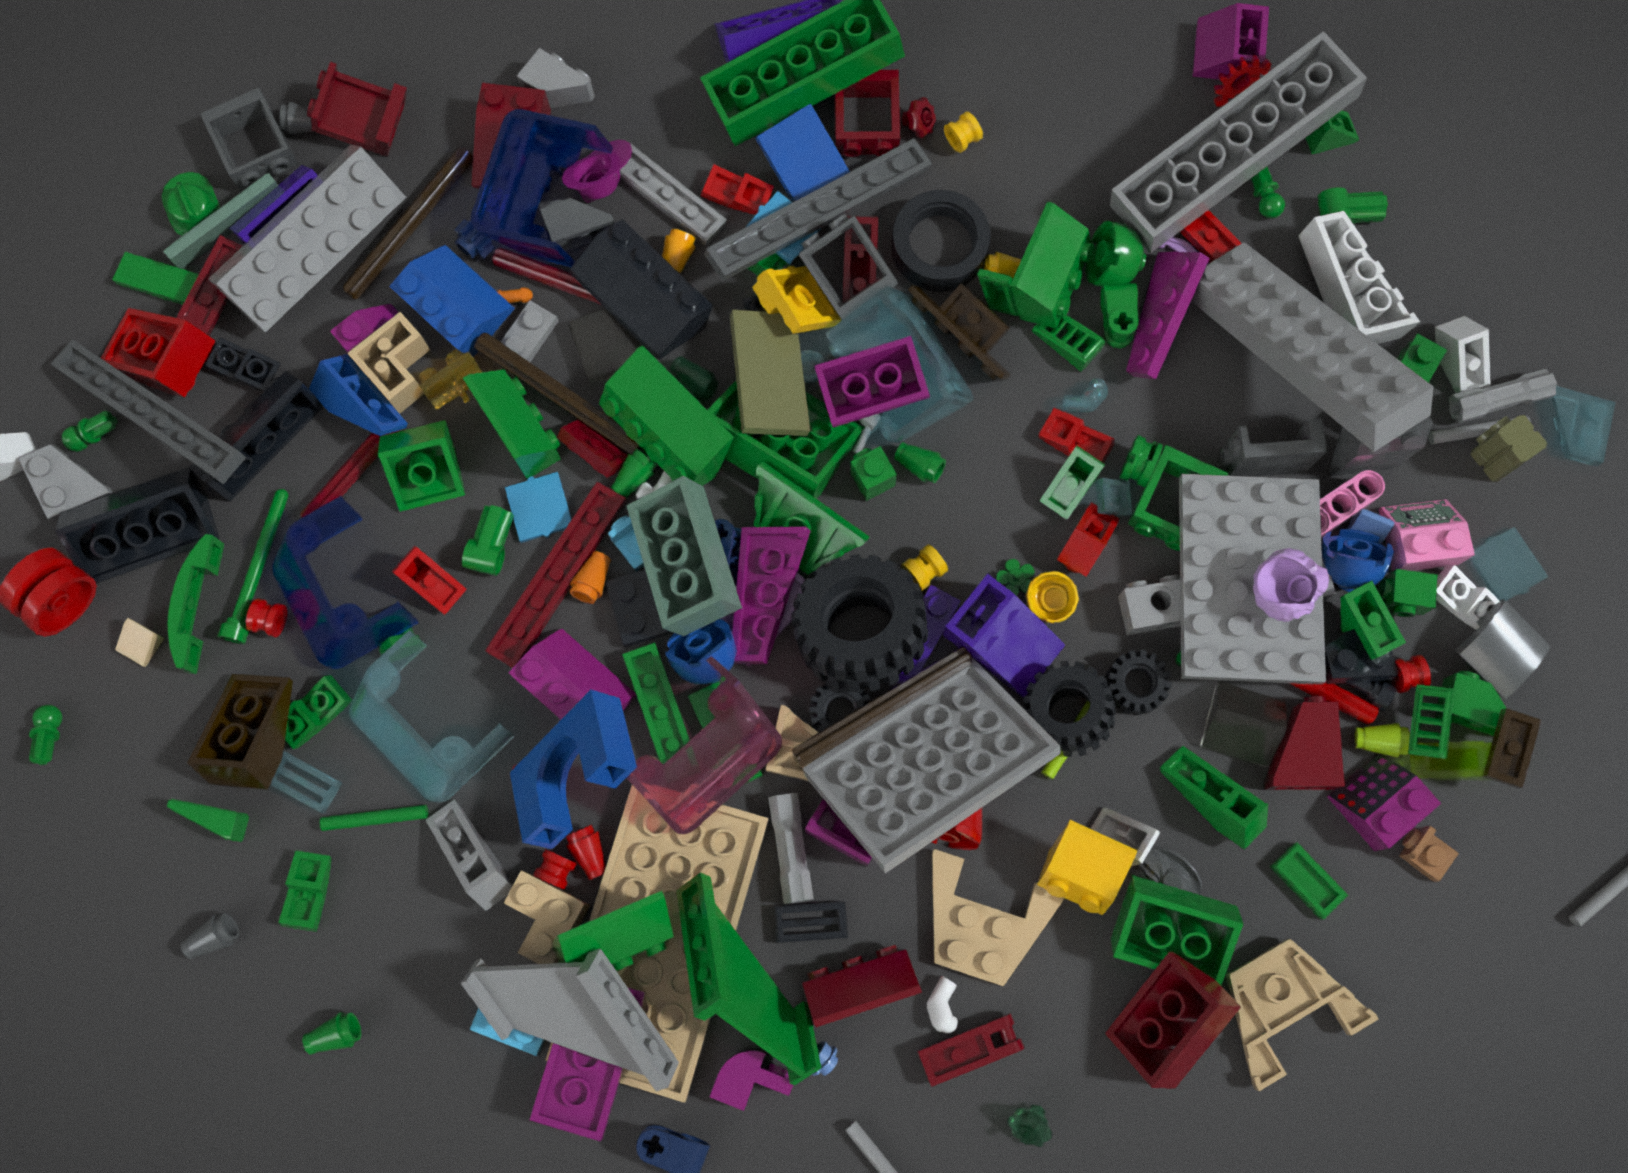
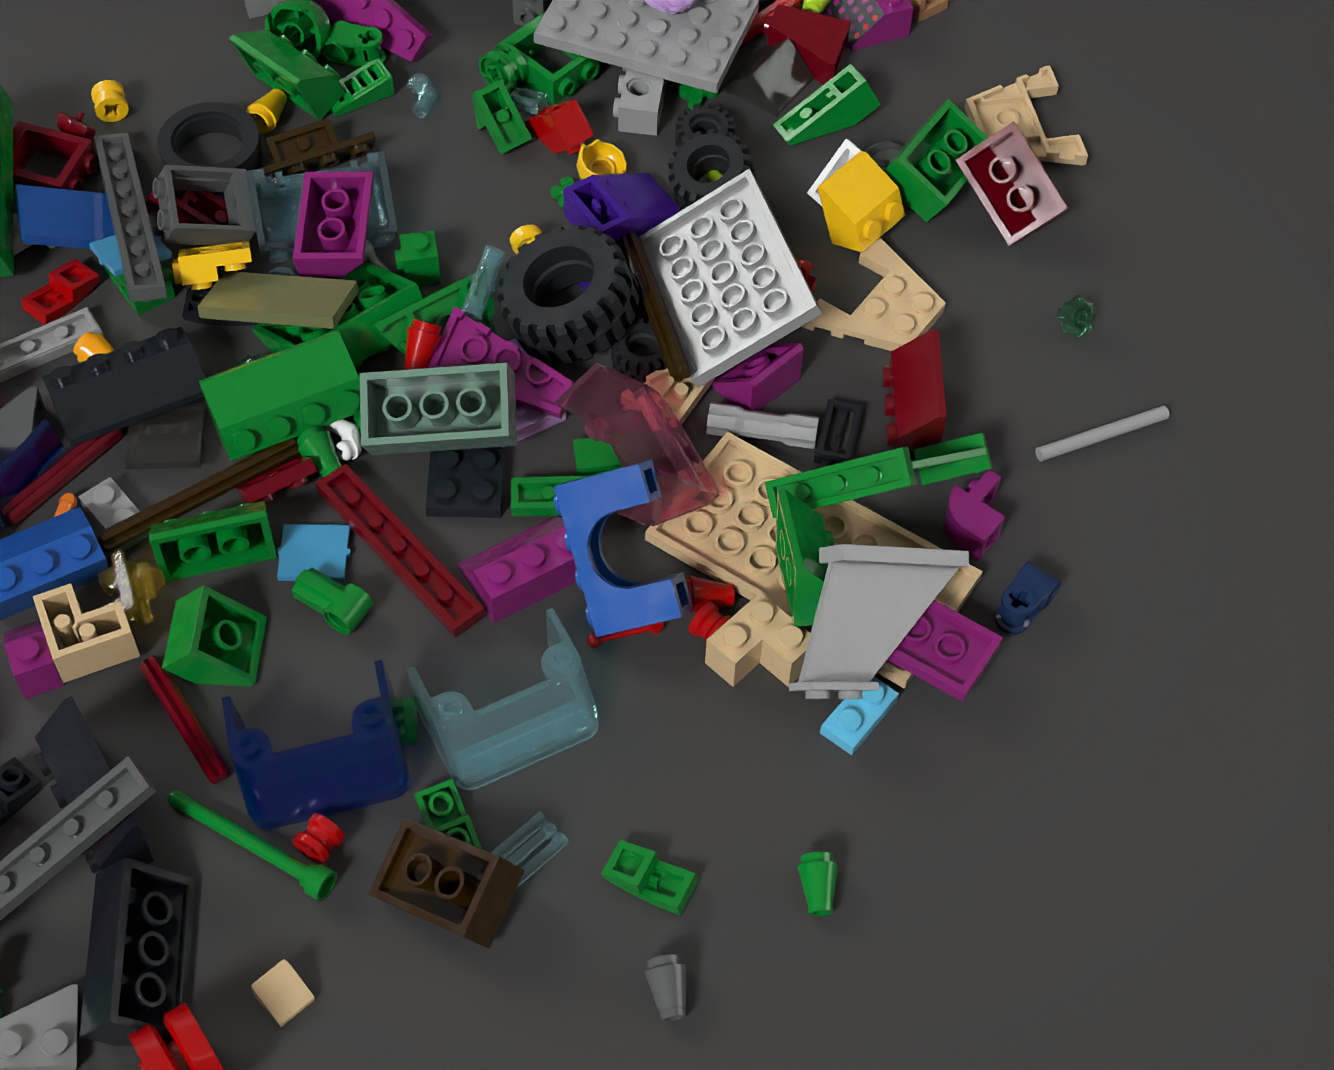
camera: 75 degrees left, 20 degrees down
(202, 560) = (310, 936): green slope -> none
(223, 822) = (536, 944): green slope -> none
(352, 396) = (106, 677): blue slope -> none
(374, 817) = (592, 791): green bar -> none
(429, 580) = (351, 659): red slope -> none
(469, 856) = (669, 699): light grey slope -> none
(590, 579) = (420, 519): orange cone -> none
(625, 541) = (394, 475): medium azure bracket -> none
(689, 652) = (543, 433): blue cylinder -> none
(759, 513) = (421, 344): none -> red cone
(839, 541) = (483, 282): none -> clear light blue pin
(921, 462) = (428, 218): green cone -> none
(938, 1006) = (957, 355): white arm -> none
(969, 1050) = (996, 344): dark red plate -> none
(998, 291) = (290, 108): green slope -> none
(1067, 431) = (452, 116): red slope -> none
(1308, 881) = (919, 80): green tile -> none

